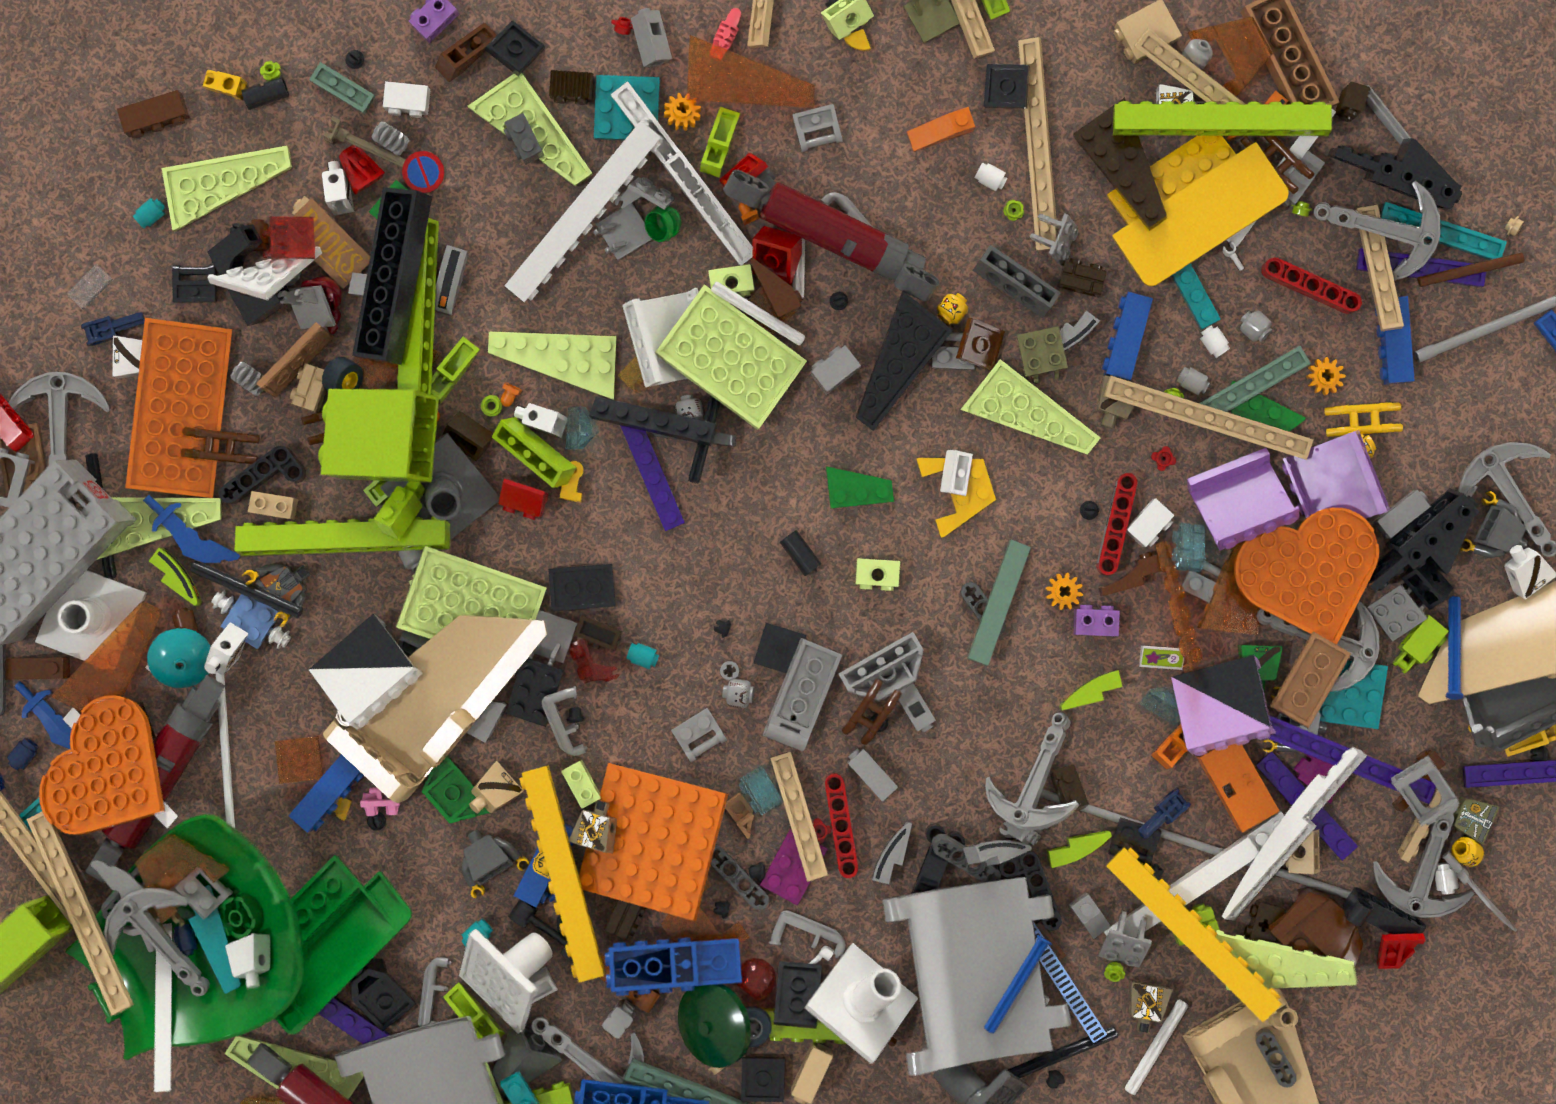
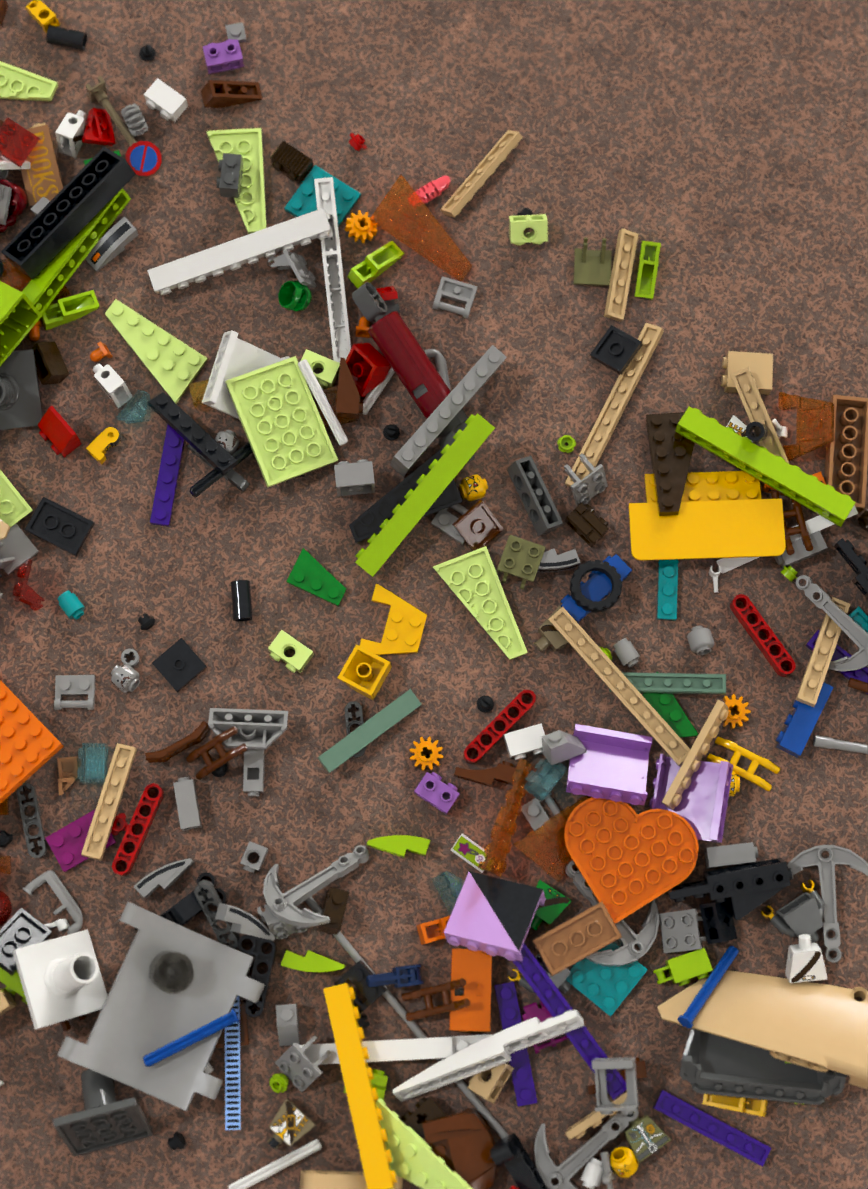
camera: 30 degrees right, 10 degrees down
(275, 73) = (81, 24): lime plate -> none
(342, 88) = (124, 67): sand green plate -> none
(484, 405) = (79, 348): lime plate -> none
(515, 48) = (268, 111): black plate -> none
(534, 452) = (88, 402): lime brick -> none
(598, 633) = (48, 567): dark brown brick -> none
(623, 231) = (261, 286): light grey plate -> none
(651, 38) = (372, 161): light grey brick -> none
(757, 871) = (49, 825): black piece -> none
(802, 694) = (172, 708): light grey hinge -> none
(823, 740) = (174, 749): none -> reddish brown piece
(858, 40) = (525, 253): yellow tile -> none
(894, 192) = (447, 410): none -> light grey arch
(915, 346) = (425, 494): none -> lime brick
(941, 129) = (548, 352): orange slope -> none
(951, 939) = (167, 982): none -> clear smoke brick
(956, 472) = (399, 611): white slope -> none
(959, 776) = (254, 848): none -> light grey brick
(960, 550) = (365, 672): none -> yellow slope
(991, 176) = (563, 408): white brick -> none
(1061, 1054) = (195, 1124): black axle -> none
(1126, 313) = (611, 573): none -> black tyre
(1157, 457) = (567, 694): red plate -> none
(1188, 509) = (561, 747): none -> light grey slope
(1198, 52) = (778, 409): light grey head -> none
(1198, 98) = (749, 431): none -> black pin
(1212, 71) = (781, 431): none -> white hand
(1213, 825) = (427, 994): none -> reddish brown piece
(1214, 341) = (661, 632): white brick -> none
(1318, 431) = (692, 762): none -> tan plate
(1540, 754) = (731, 1118): black piece -> none

